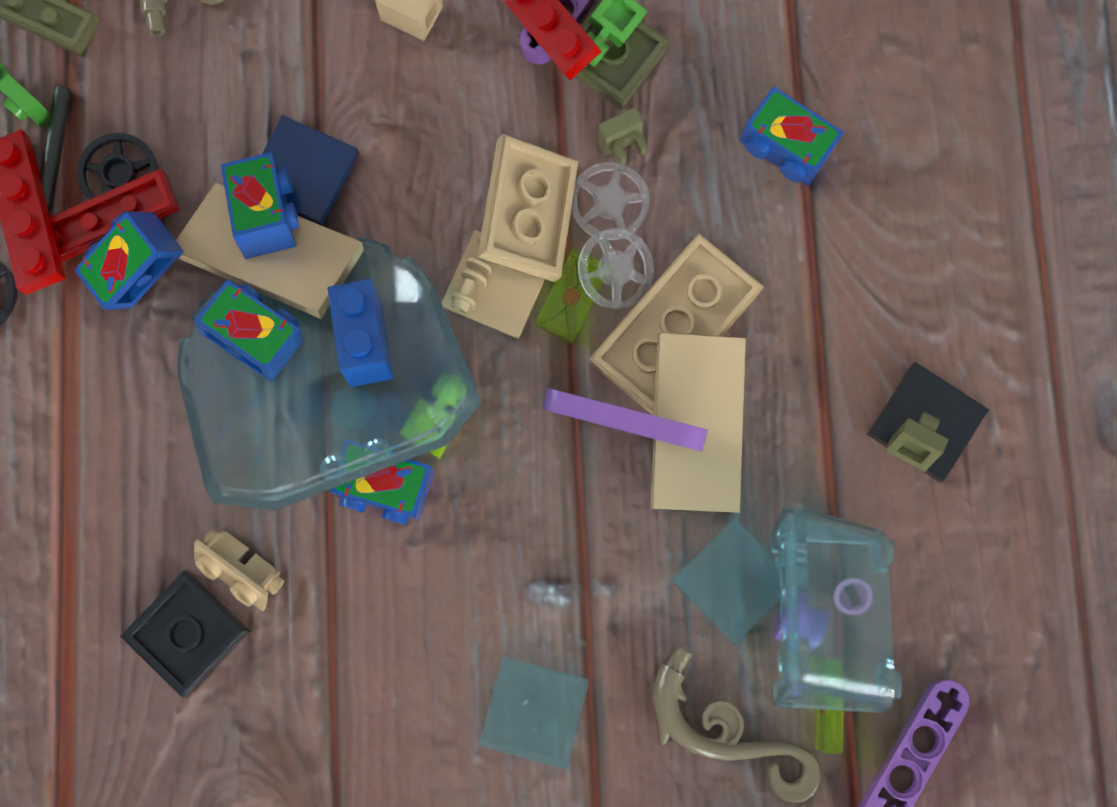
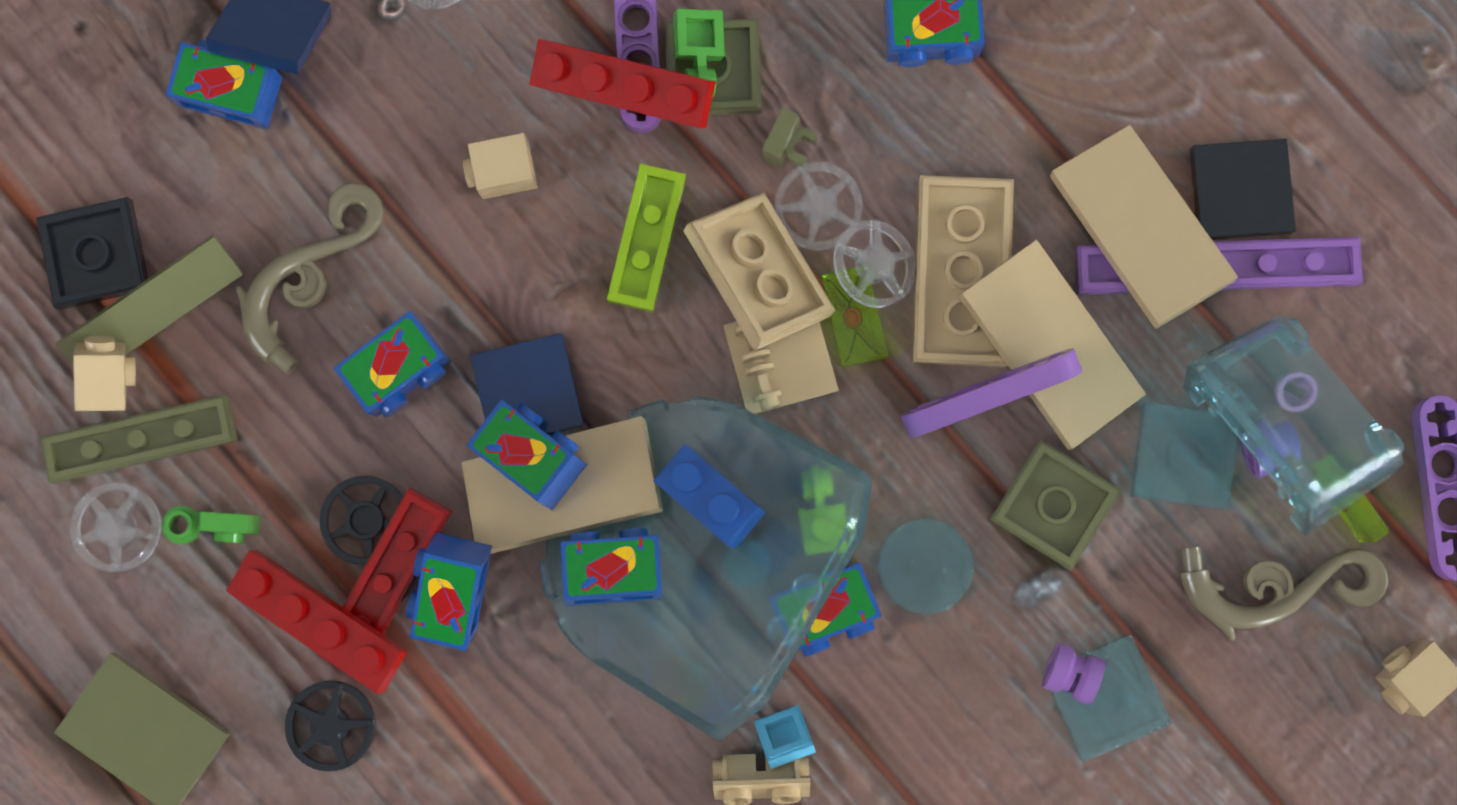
camera: 30 degrees left, 5 degrees up
(54, 142) = (284, 537): pearl dark grey bar -> none
(223, 80) = (393, 366): none -> brick
(278, 551) = (784, 736): none -> medium azure tile
(469, 129) = (646, 238): none -> lime plate
(480, 511) = (925, 566): none -> clear light blue tile
(512, 663) = (1073, 673): none -> medium lavender wheel
(609, 541) = (1055, 505): none -> olive tile
(832, 391) = (1143, 226): none -> tan tile
(868, 464) = (1256, 263): none -> medium lavender tile
(918, 442) = (1252, 217): olive tile -> none

